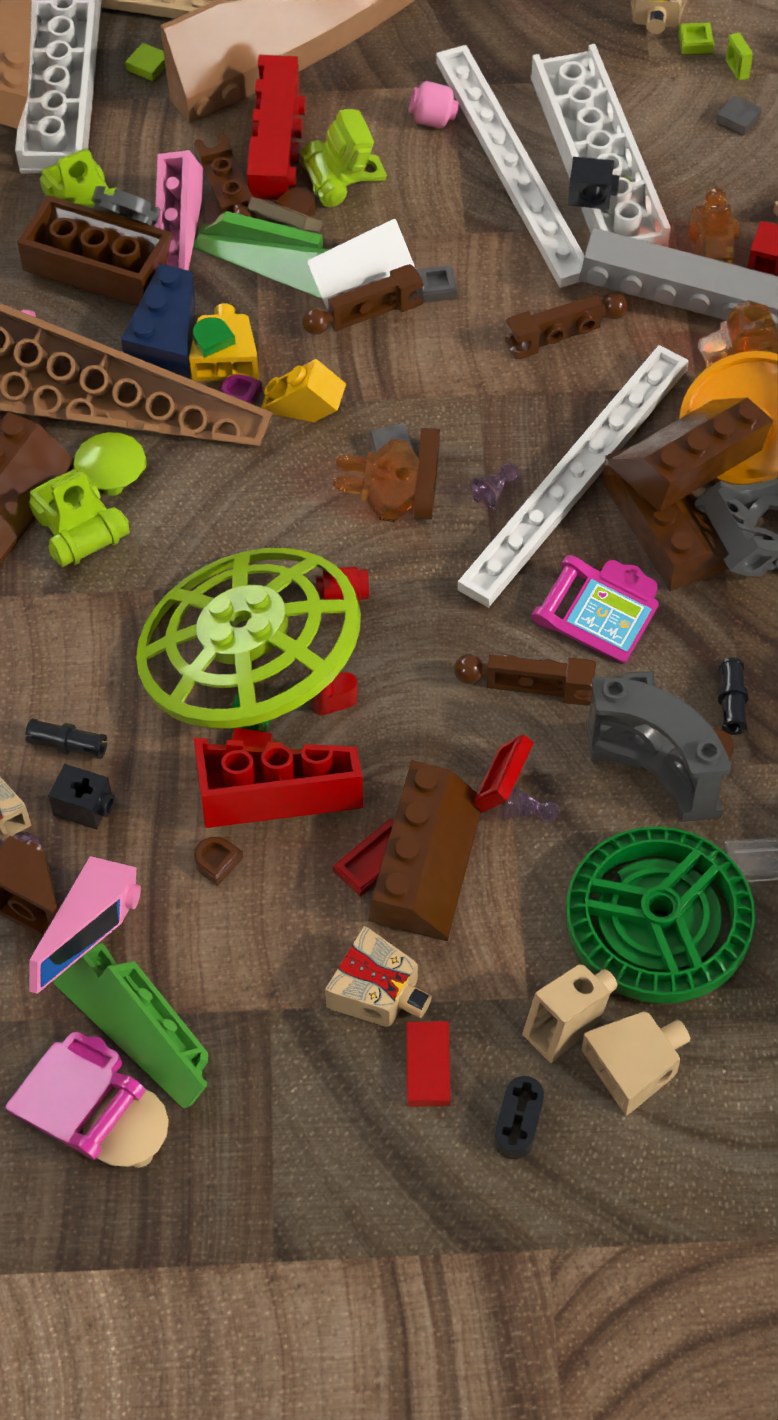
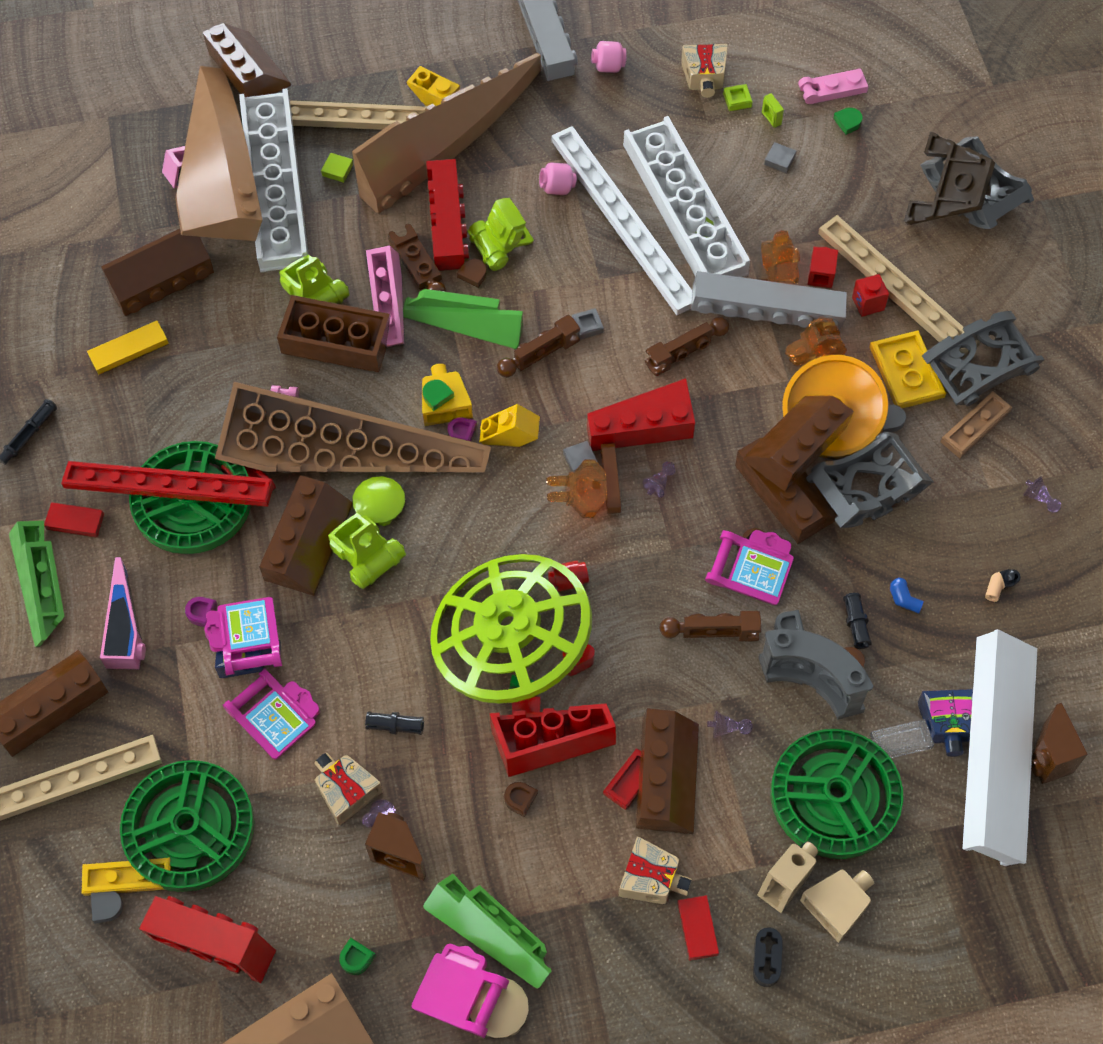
camera: 10 degrees left, 5 degrees up
(81, 796) = (409, 759): black brick -> none
(86, 917) = (443, 857): bright pink slope -> none
(125, 205) = (344, 296): dark grey plate -> none
(164, 321) = (396, 386): dark blue wedge -> none
(285, 215) = (467, 285): dark tan tile -> none
(360, 260) = (531, 317): white sticker -> none
(487, 404) = (644, 419): none -> red wedge
(503, 773) = (710, 704): red tile -> none
(571, 477) = (714, 466): white plate -> none
(592, 183) = (689, 234): black brick -> none

